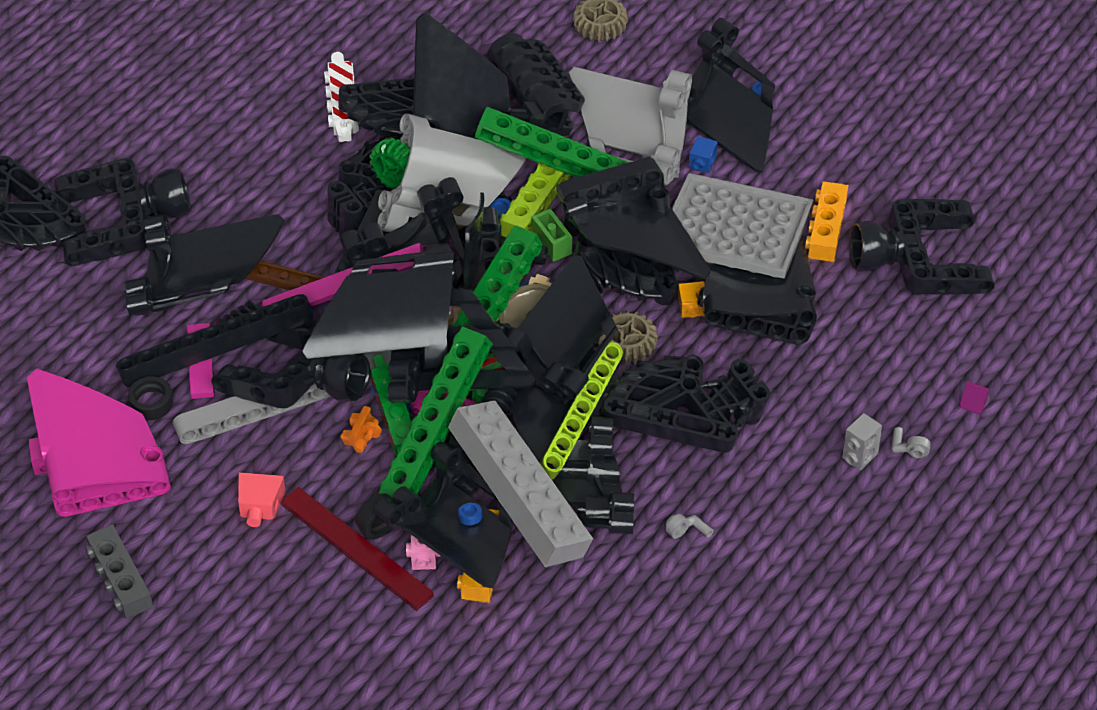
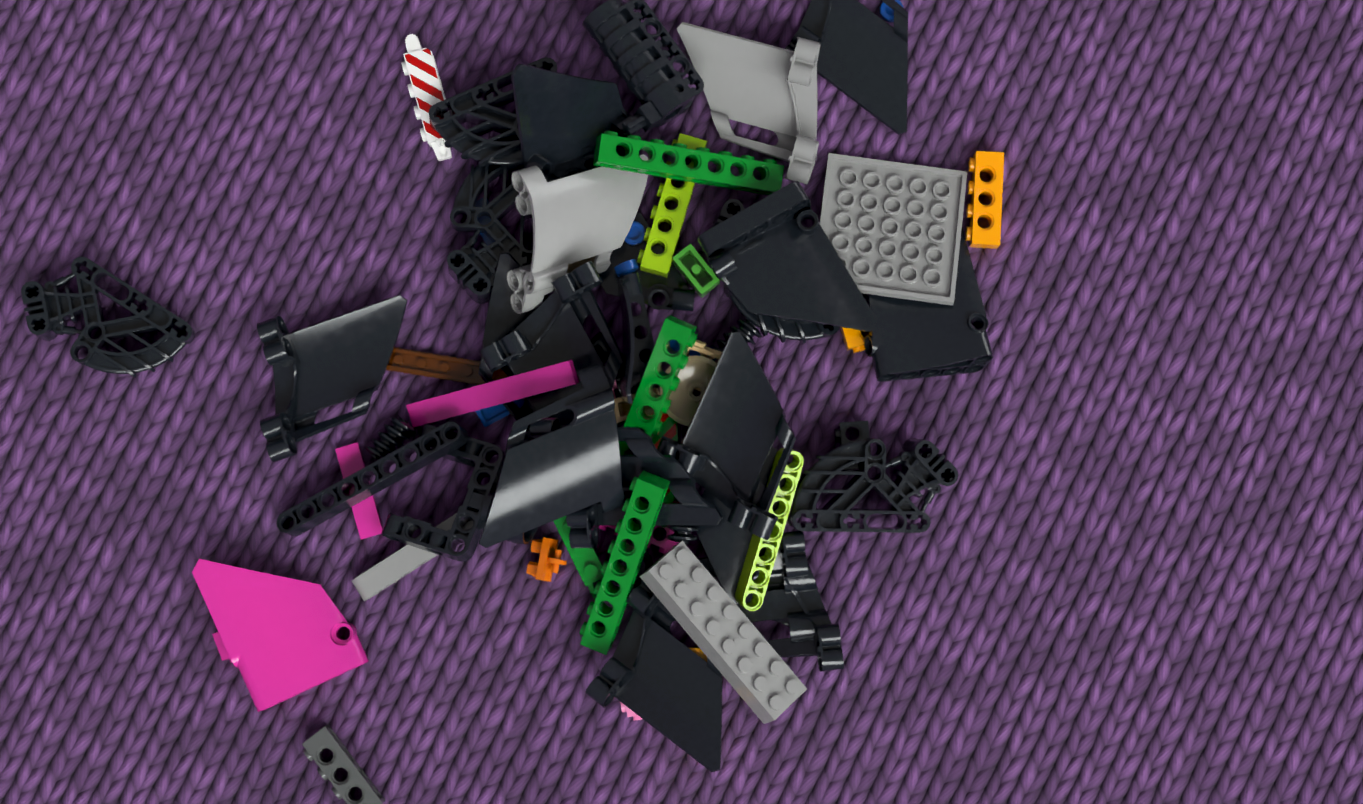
camera: 10 degrees left, 35 degrees up
(146, 385) = (303, 557): black tyre -> none
(164, 195) = (270, 282): black piece -> none
(259, 496) = (460, 661): coral torso -> none
(358, 549) = (569, 702): dark red tile -> none
(367, 521) = (585, 672): black tyre -> none
(390, 161) = (511, 226): green gear -> none
(470, 513) = (677, 663): blue tile -> none
(634, 335) = (809, 398): dark tan gear -> none
(678, 524) = (880, 628): light grey plate -> none
(703, 154) = (840, 123): blue brick -> none
(862, 441) = (1053, 505): light grey brick -> none
(874, 246) = (1042, 237): black piece -> none
(915, 446) = (1107, 494): light grey plate -> none
(974, 398) = (1159, 419): magenta slope -> none

